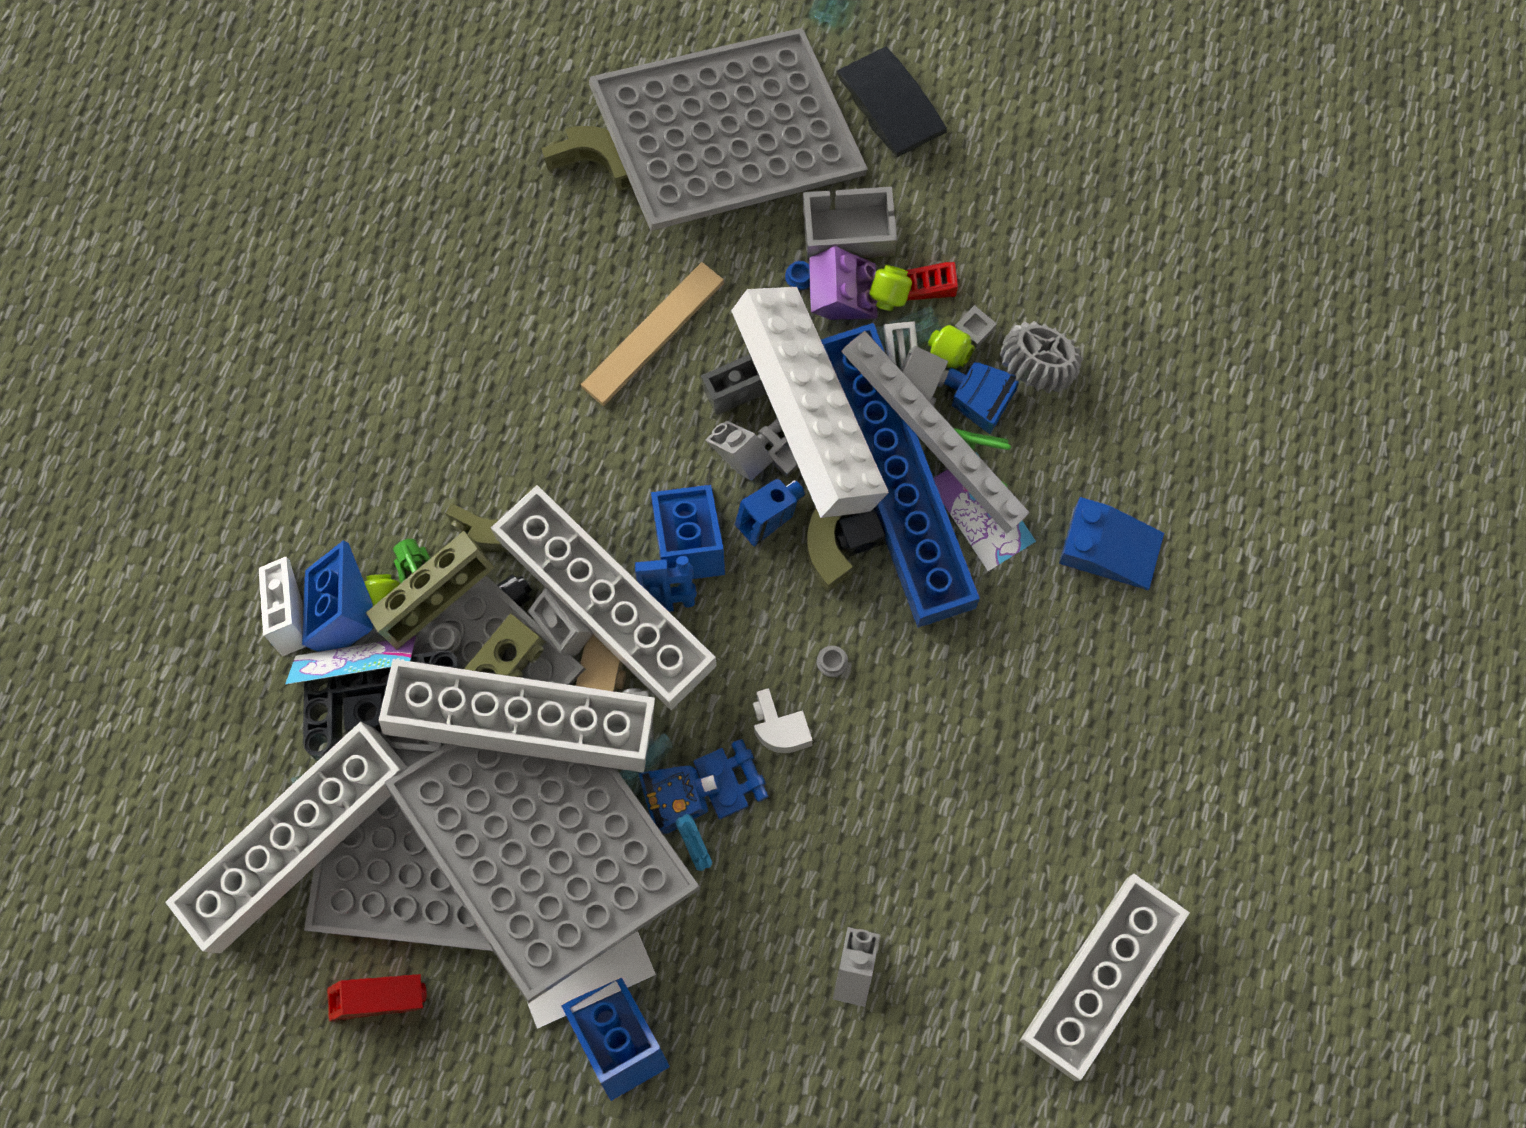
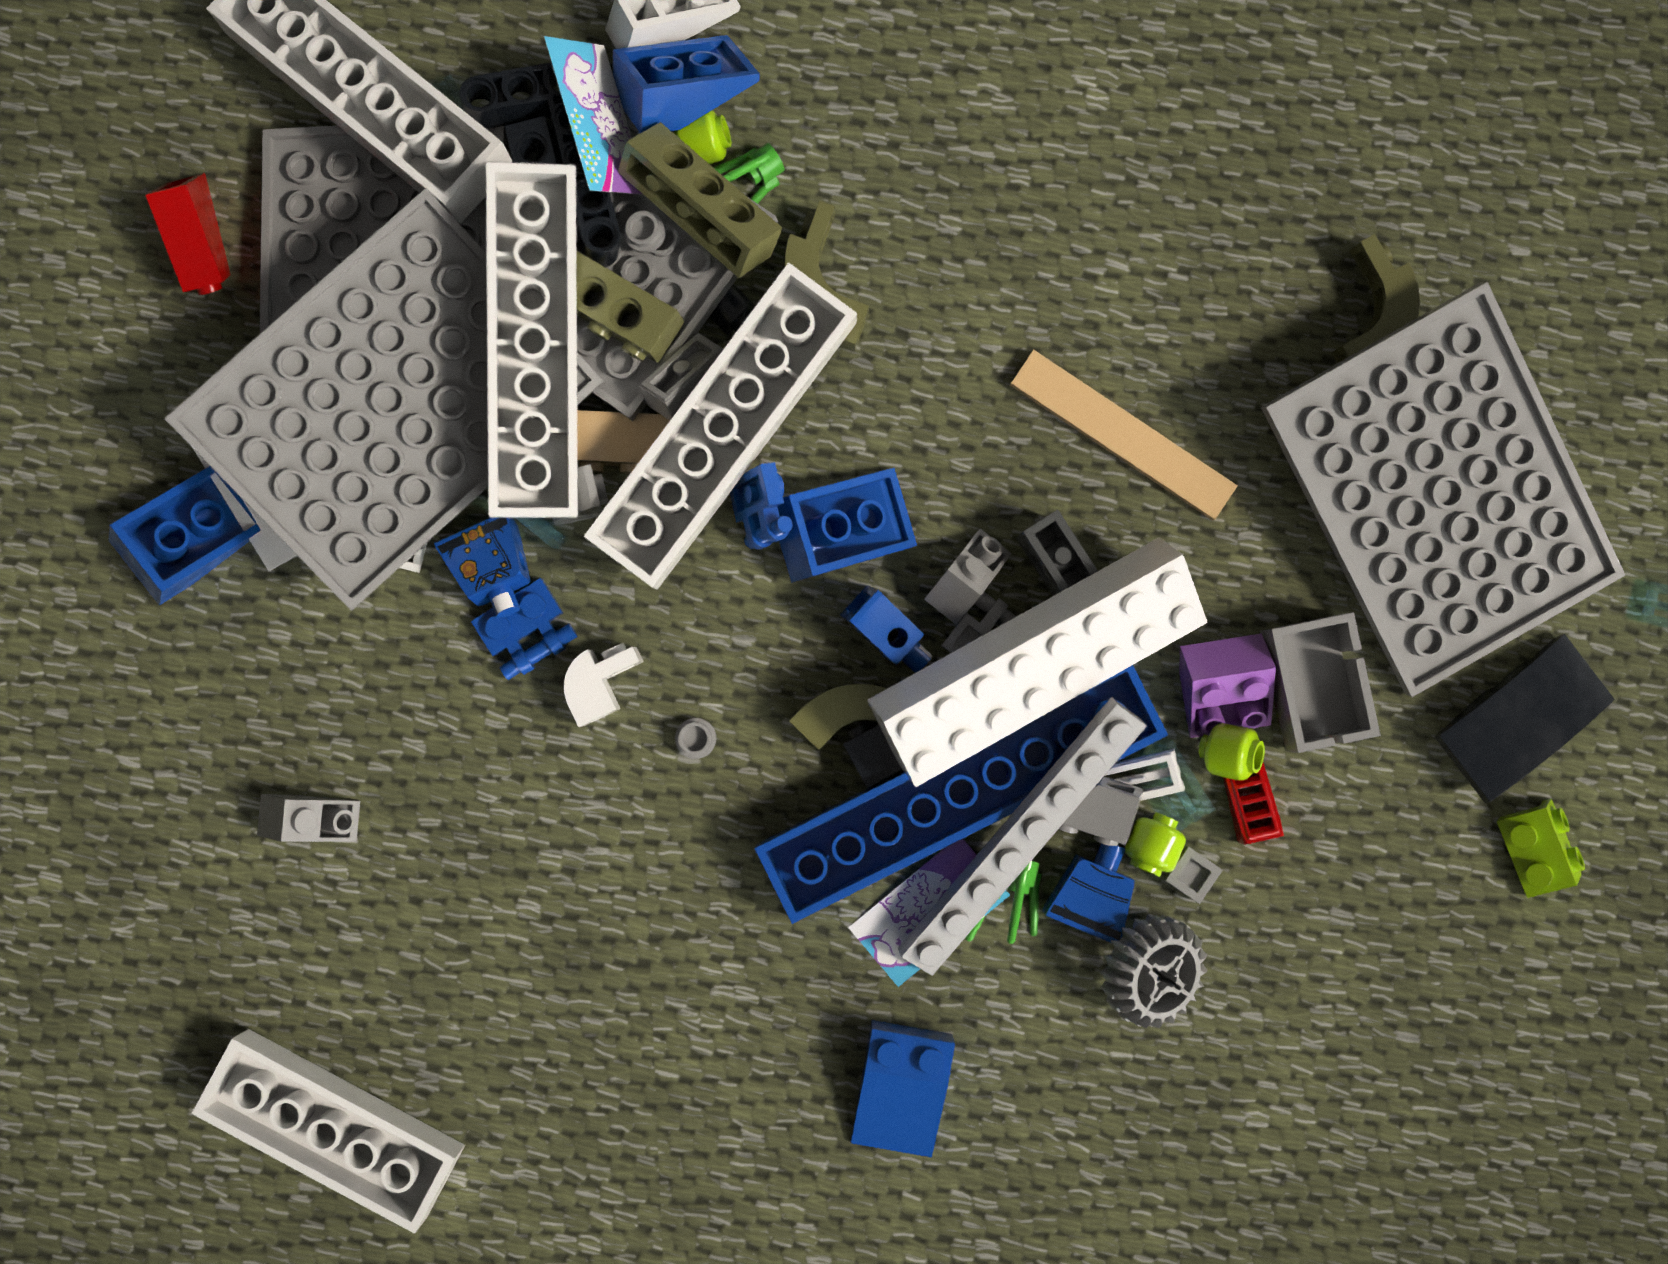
camera: 85 degrees right, 15 degrees up
(693, 842) = (430, 594): dark azure axle -> none
(798, 275) = (1236, 621): blue plate -> none
(984, 103) = (1541, 849): none -> lime bracket

